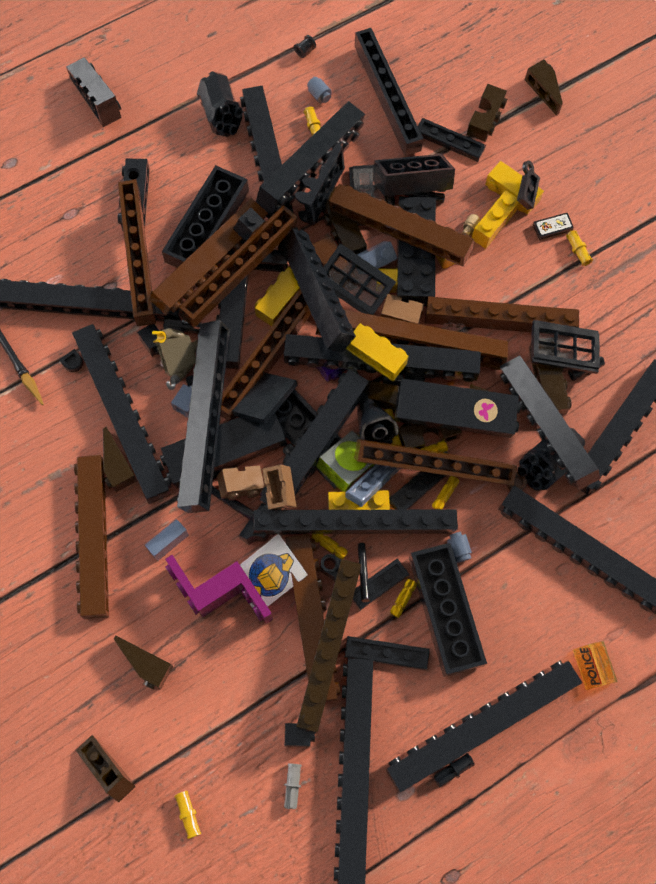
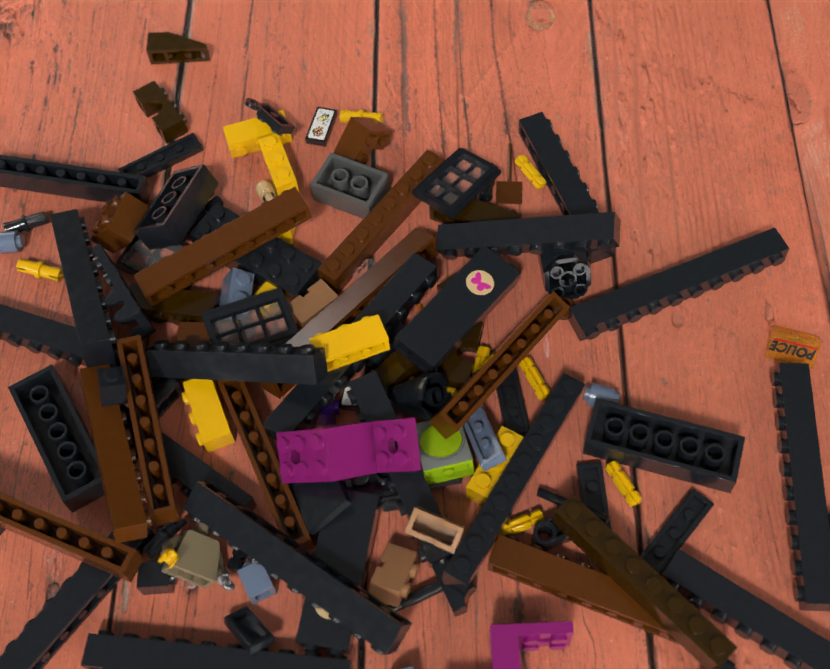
camera: 50 degrees left, 10 degrees down
(152, 416) = (249, 630): none -> black tile
(271, 570) = (513, 596): sticker -> none
(297, 399) = (348, 451): none -> magenta bracket
(341, 91) = (27, 223): none -> black axle
(377, 146) = (118, 222): none -> reddish brown brick
(512, 275) = (349, 185): none -> dark grey brick
(557, 258) = (361, 137): none -> reddish brown brick
(590, 388) = (509, 191): none -> reddish brown piece
(617, 394) = (530, 172): none -> yellow axle

